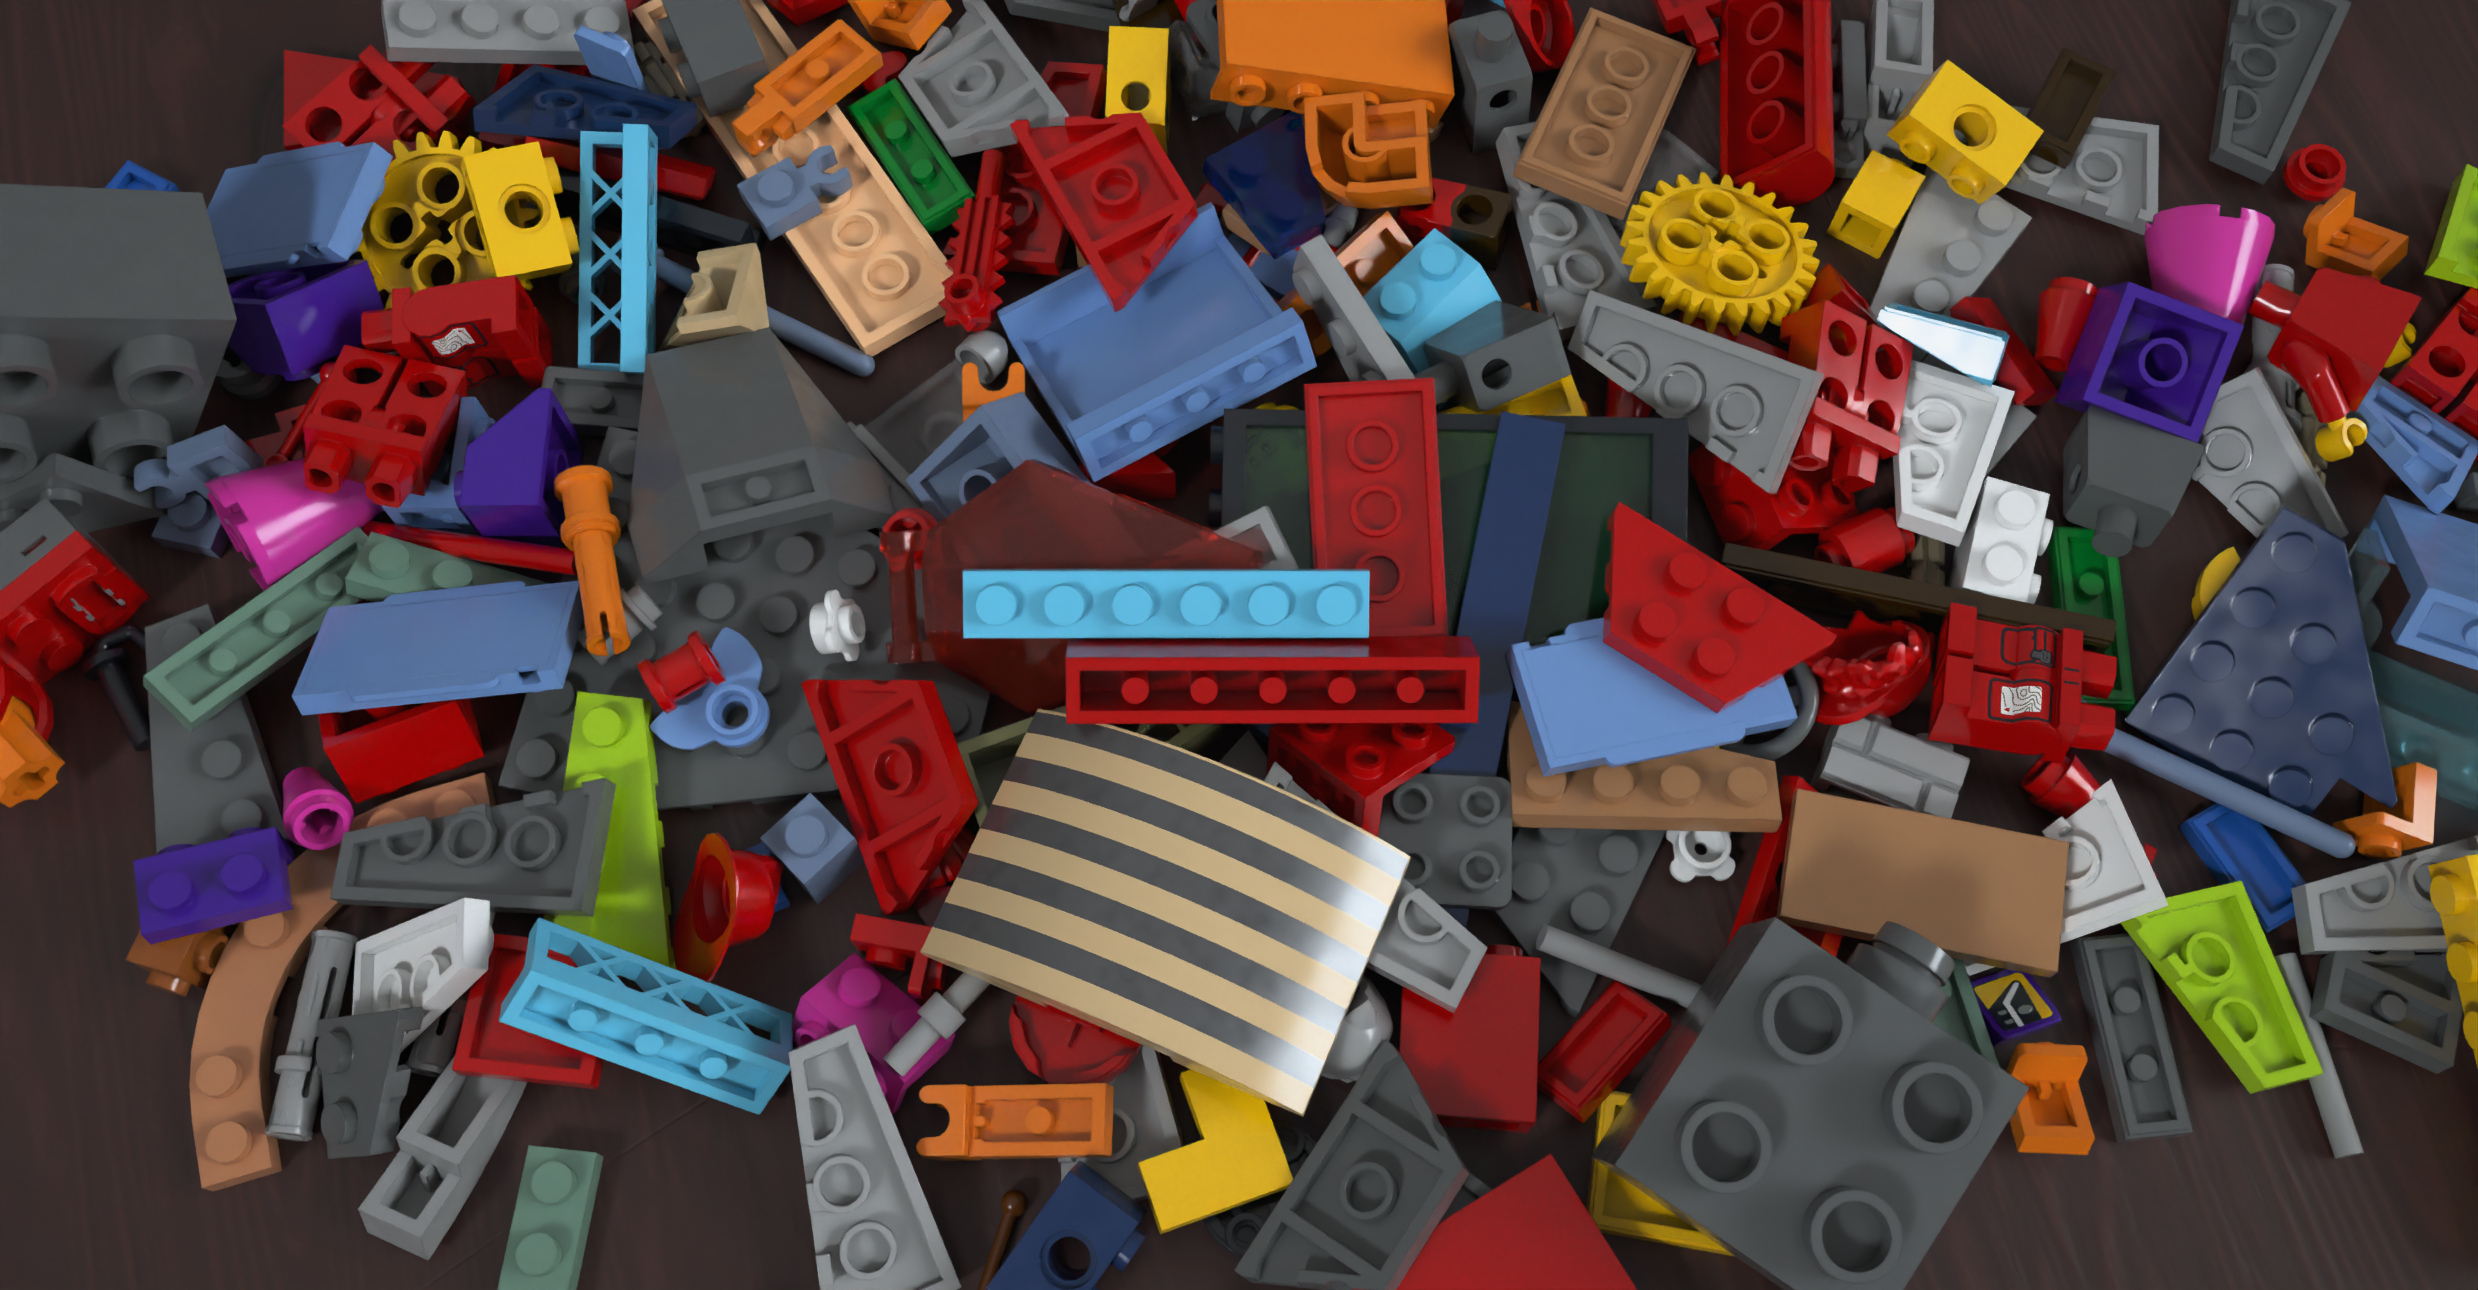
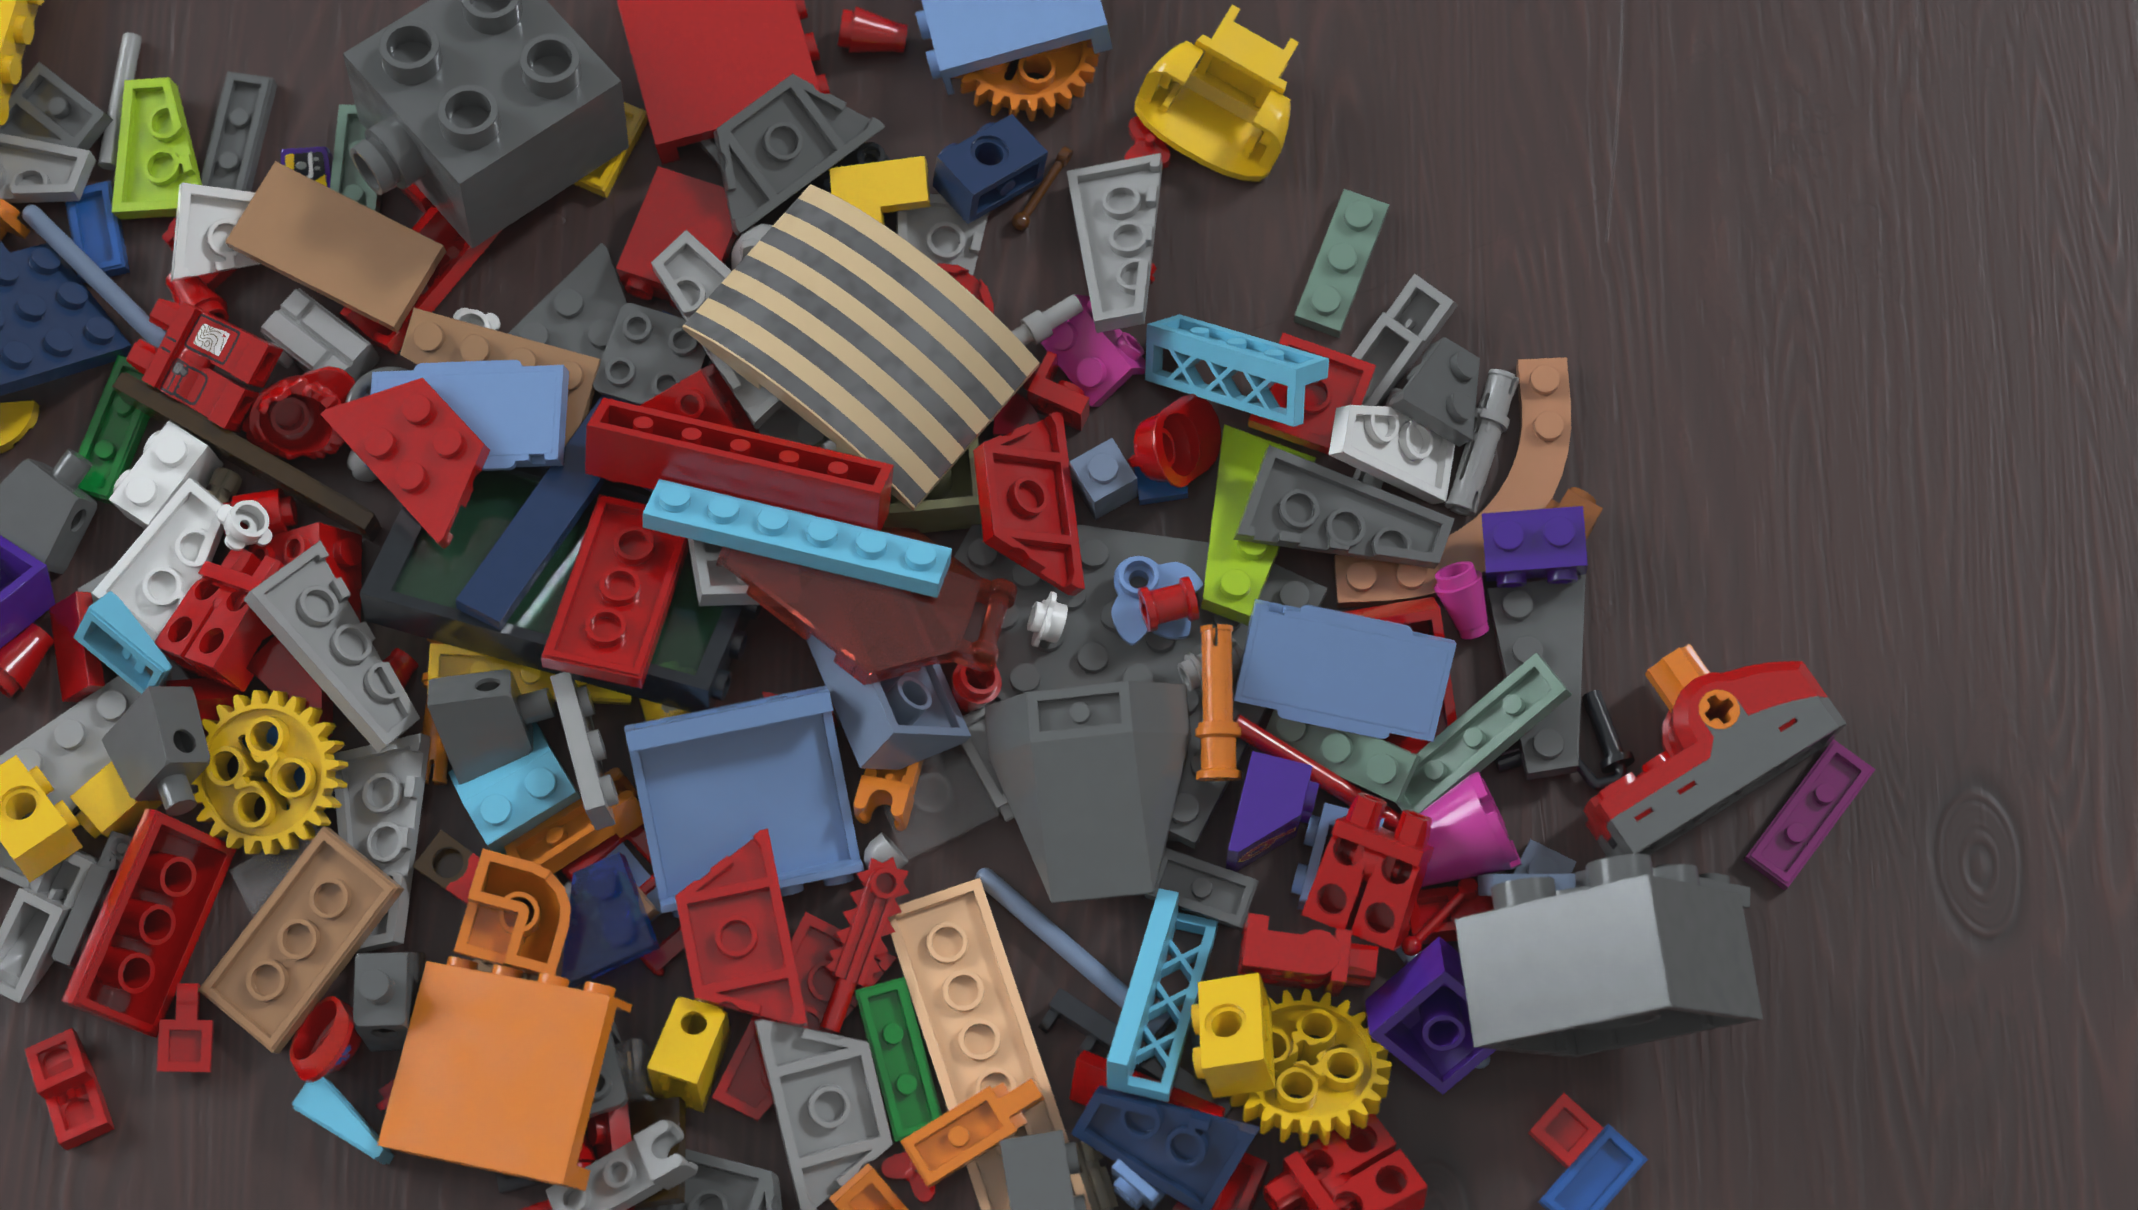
camera: 160 degrees left, 5 degrees up
(296, 207) = (1434, 1102): medium blue piece -> none
(722, 299) = (1092, 937): tan slope -> none
(789, 196) = (1013, 1031): sand blue plate -> none
(1021, 1121) = (1004, 257): orange plate -> none
(1601, 1050) = (595, 215): red tile -> none
(1616, 966) = (559, 258): light grey bar -> none
(1844, 227) = (160, 747): none -> dark grey torso
(1852, 500) = (253, 516): none -> white plate
(2053, 1110) = (313, 108): orange bracket -> none

